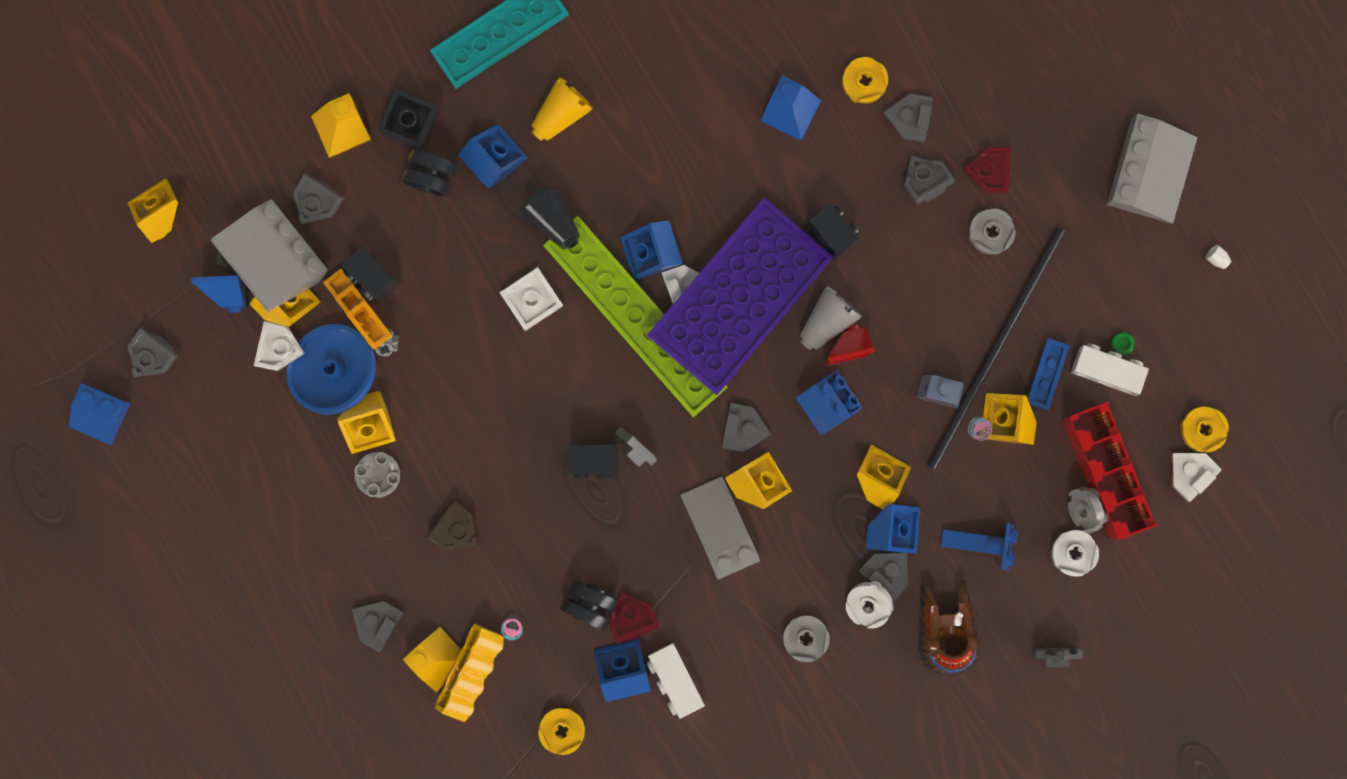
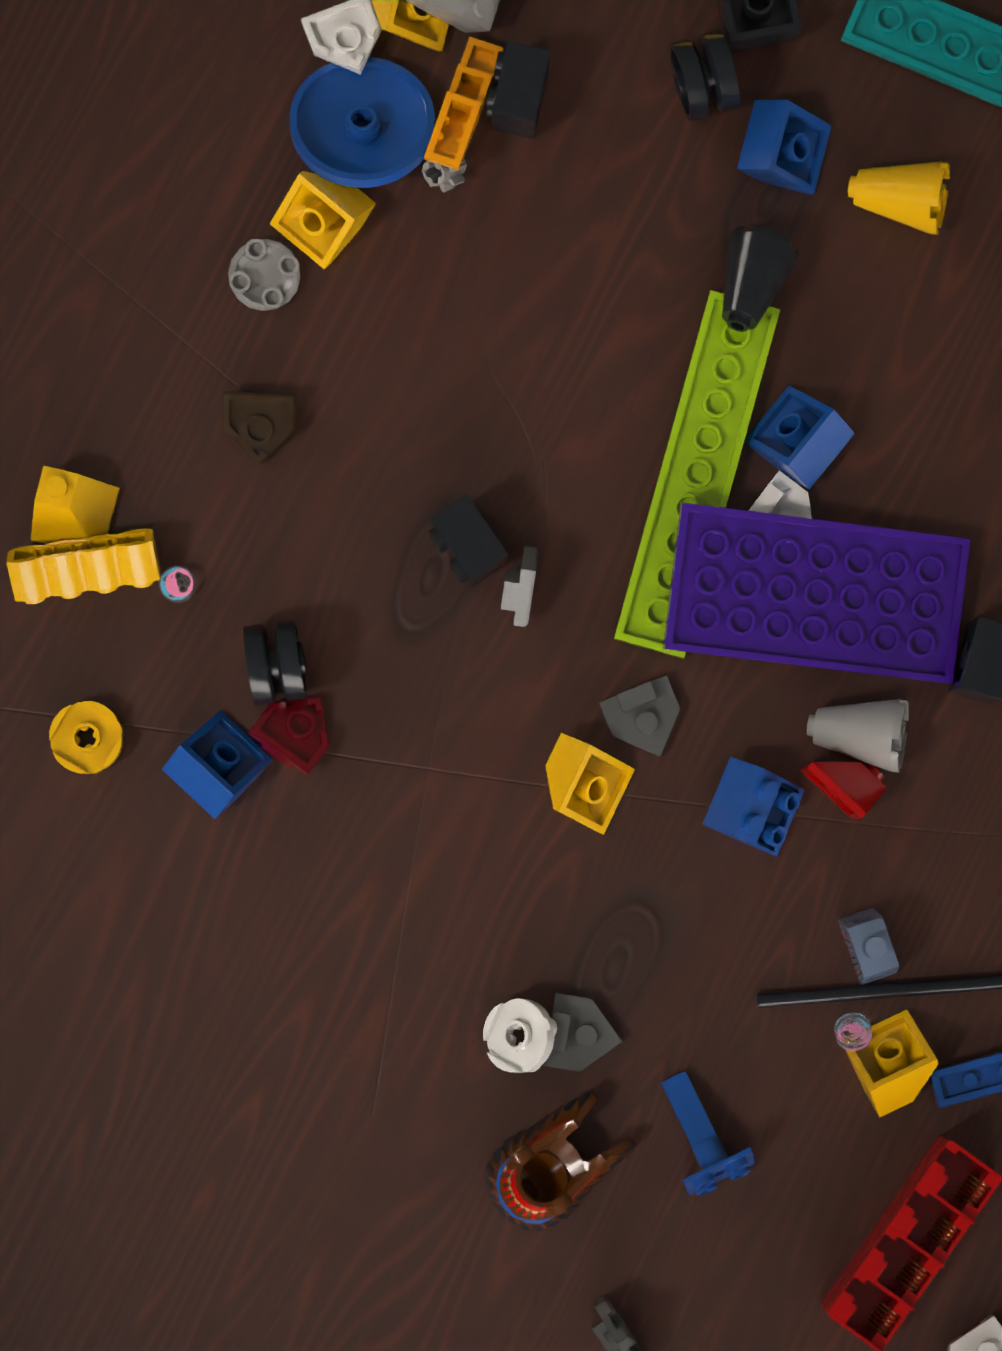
camera: 60 degrees right, 0 degrees up
(376, 623) = (69, 402): dark grey plate -> none
(531, 299) = (628, 322): white plate -> none
(675, 681) = (249, 843): white brick -> none
(720, 528) = (490, 770): light grey slope -> none
(797, 628) = (399, 974): light grey plate -> none
(882, 477) = (700, 941): yellow slope -> none
(894, 529) = (642, 1005): blue slope -> none
(1067, 542) = (761, 1288): white plate -> none
(1087, 509) = (840, 1246): light grey plate -> none

